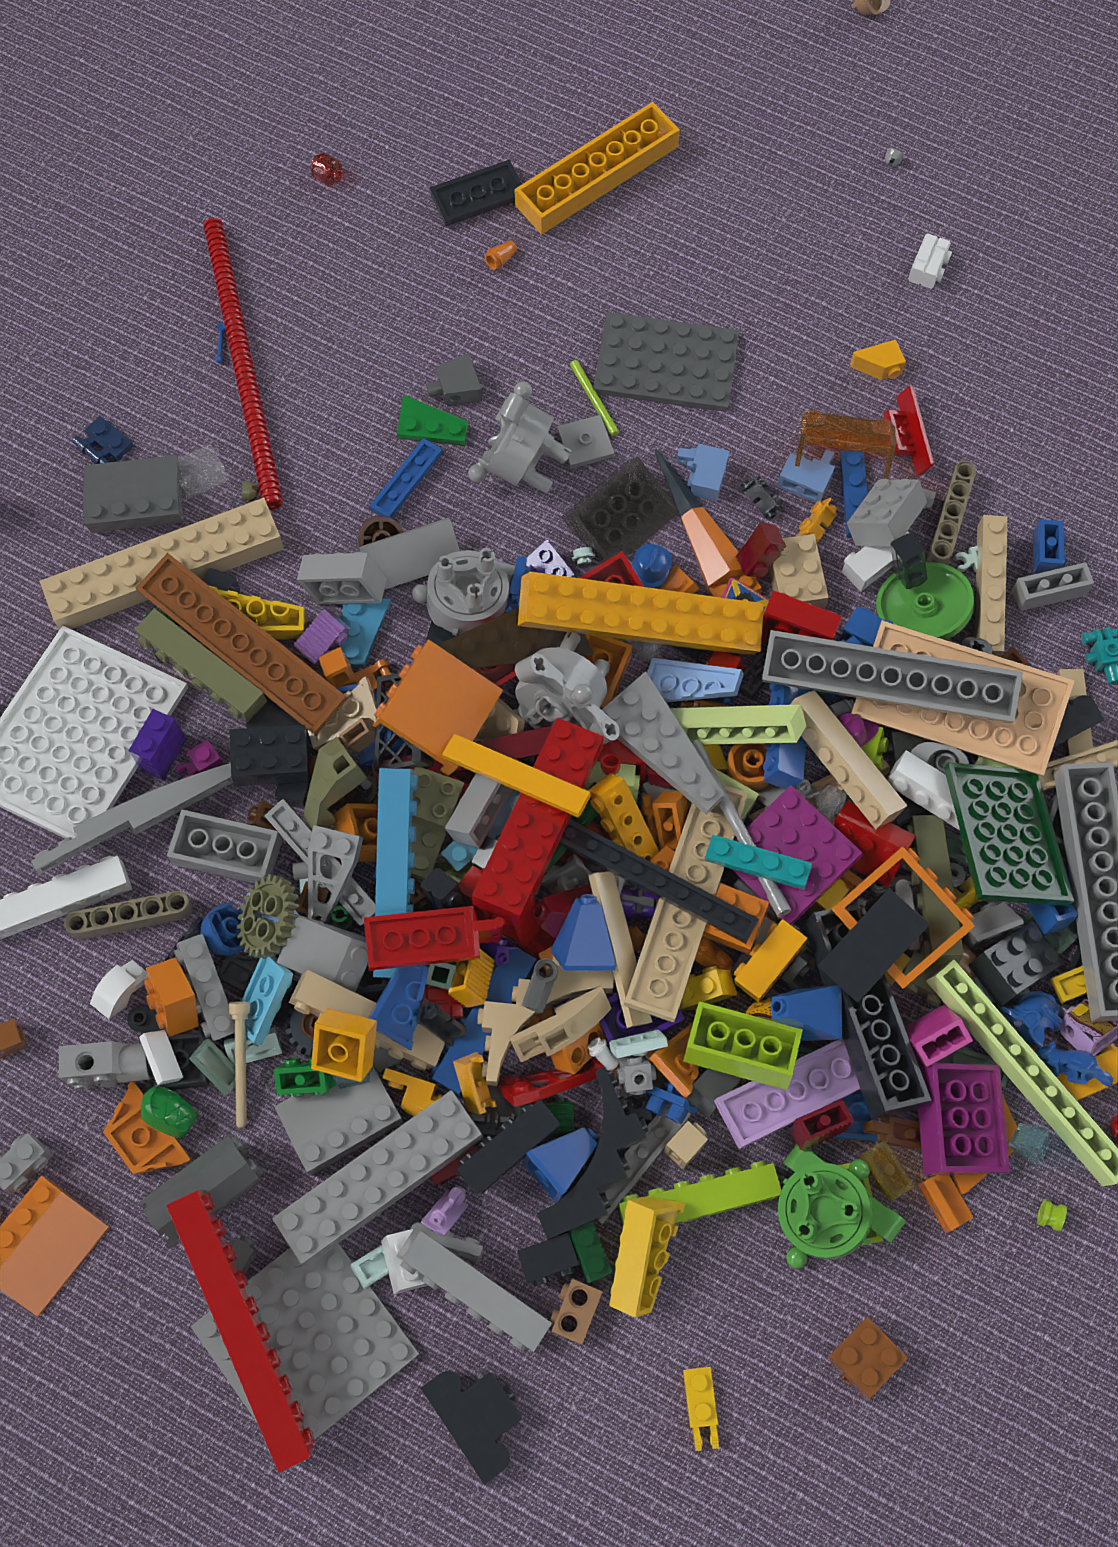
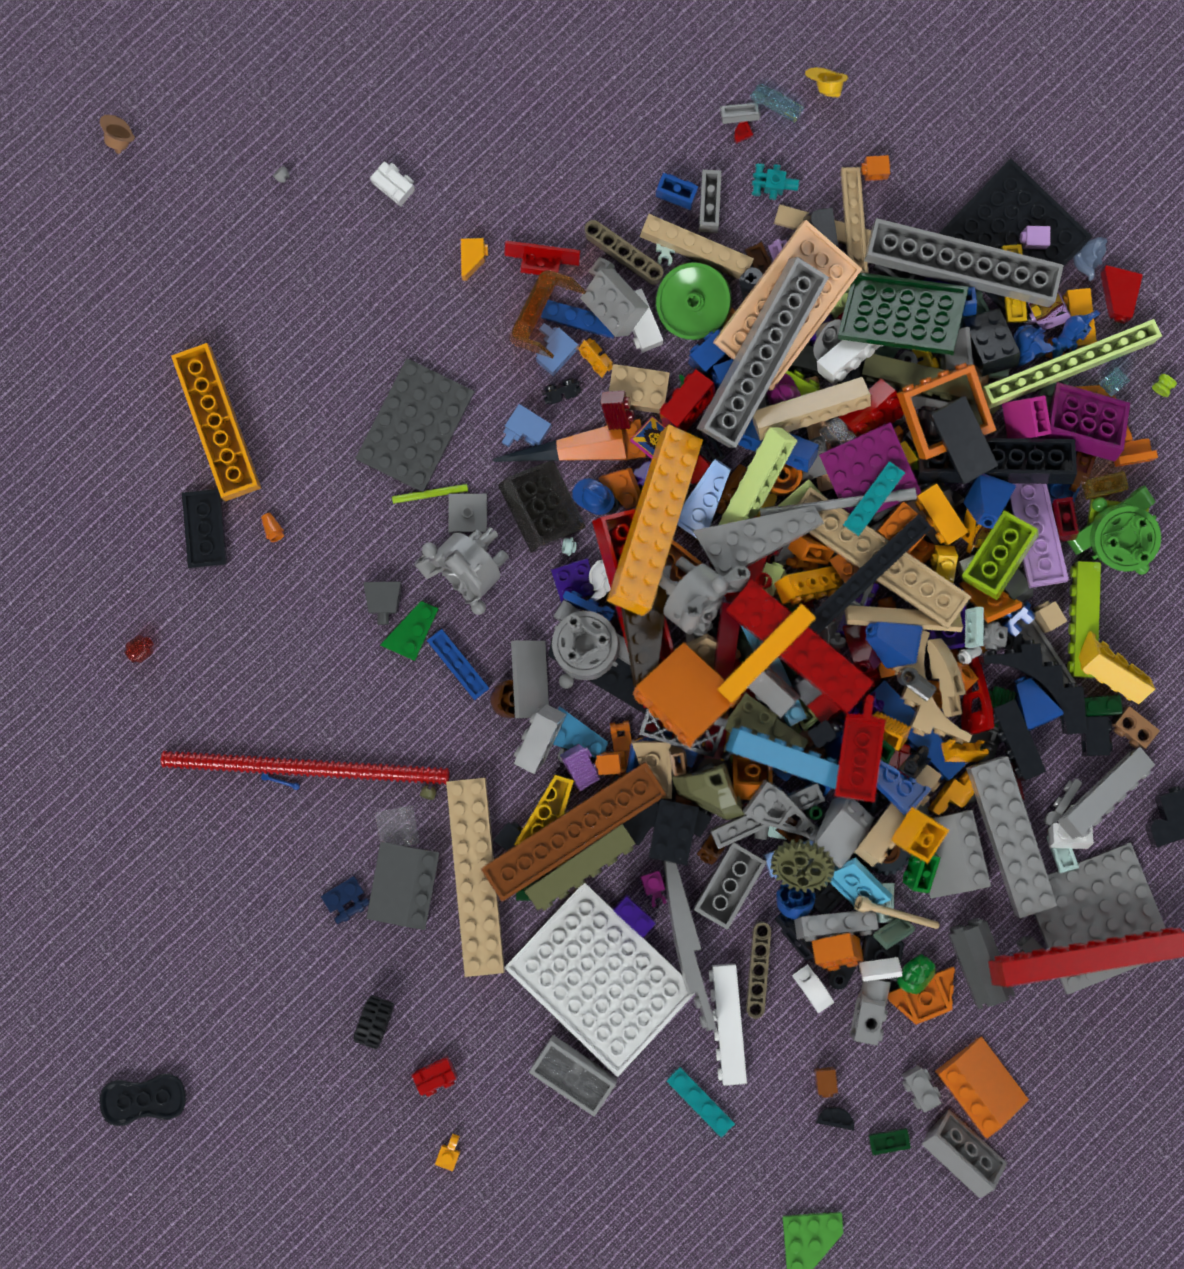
camera: 70 degrees left, 15 degrees up
(446, 1211) = (1043, 797): lavender hinge -> none
(909, 561) = (662, 301): black brick -> none

